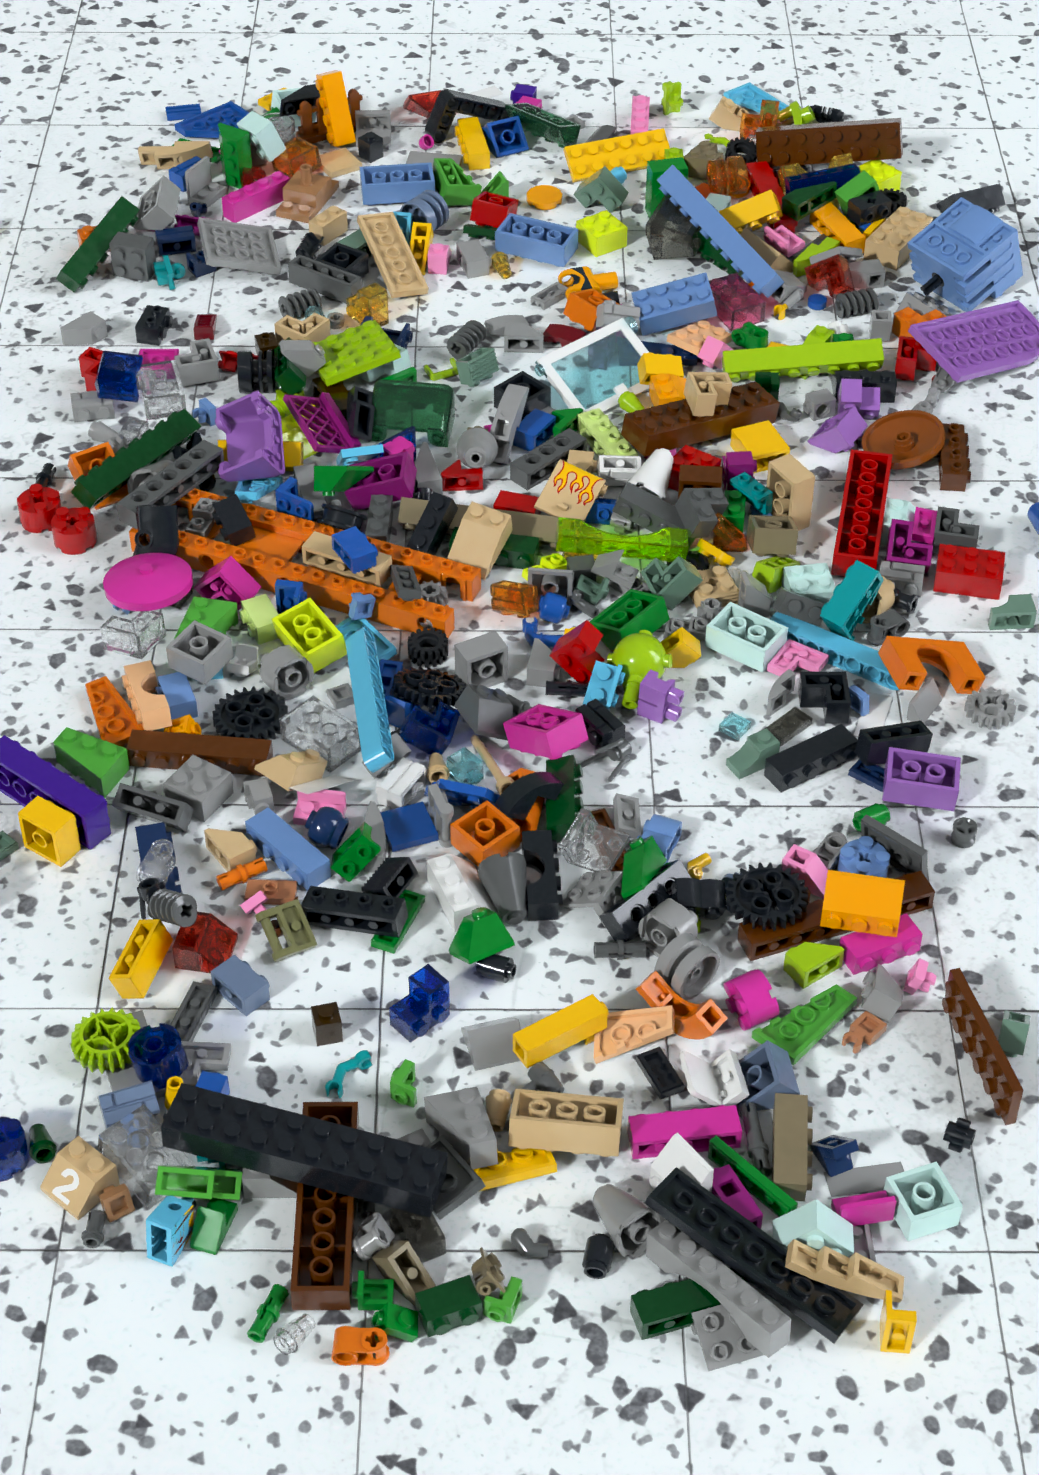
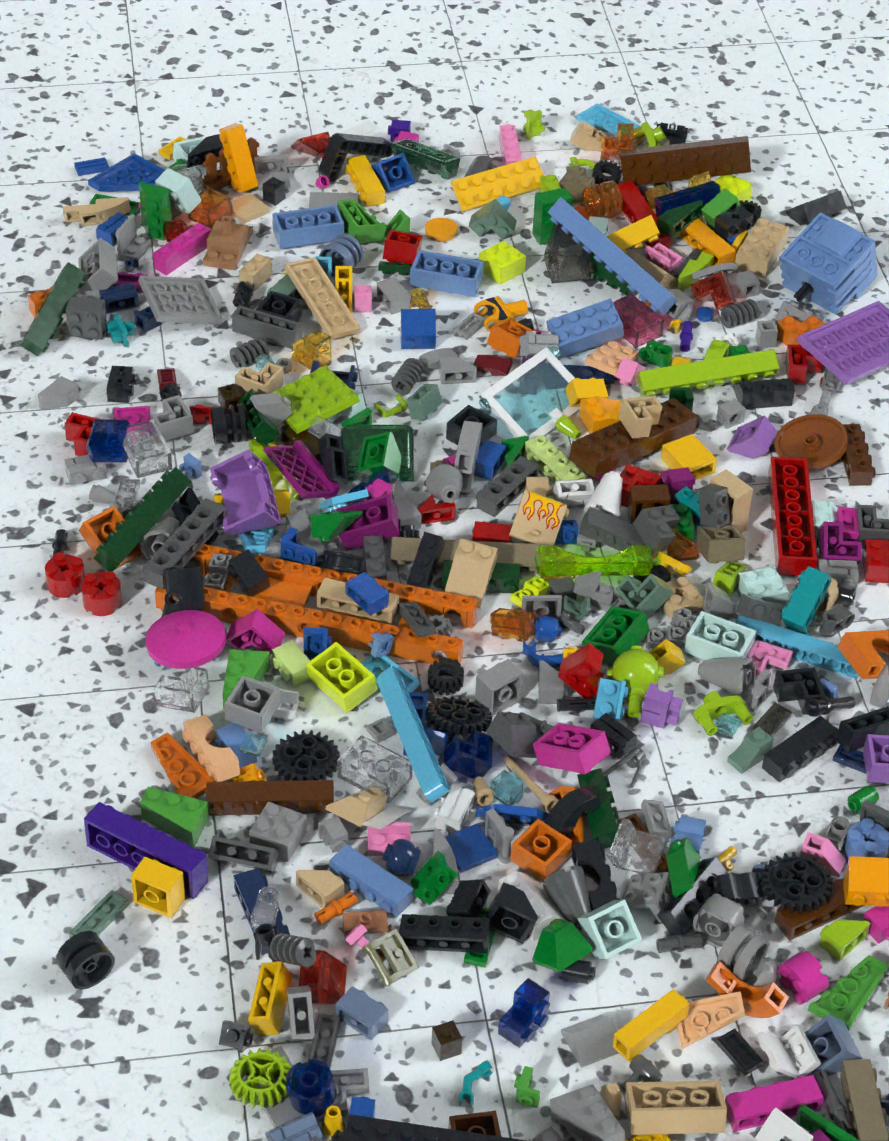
camera: 10 degrees left, 0 degrees up
(94, 993) = (235, 1035): none -> black bracket
(168, 975) = (300, 1012): none -> light grey brick
(192, 695) = (253, 744): none -> clear light blue tile
(204, 333) = (169, 391): none -> black gear
(286, 671) = (329, 713): light grey brick -> none
(354, 378) = (322, 426): none -> clear slope
(410, 409) = (378, 453): none -> green slope
(430, 896) = (511, 913): none -> black slope
(489, 292) = (418, 329): none -> blue slope
(540, 925) = (610, 929): none -> light aqua brick
(712, 988) = (766, 973): none -> light grey hair
(725, 703) = (715, 705): none -> lime connector
(749, 672) = (729, 674): none -> light grey cone
(769, 492) = (714, 505): none -> dark grey brick
(789, 322) = (686, 336): none -> dark purple pin
(848, 713) = (825, 705): none -> black pin
(863, 398) = (762, 404): medium lavender brick -> none

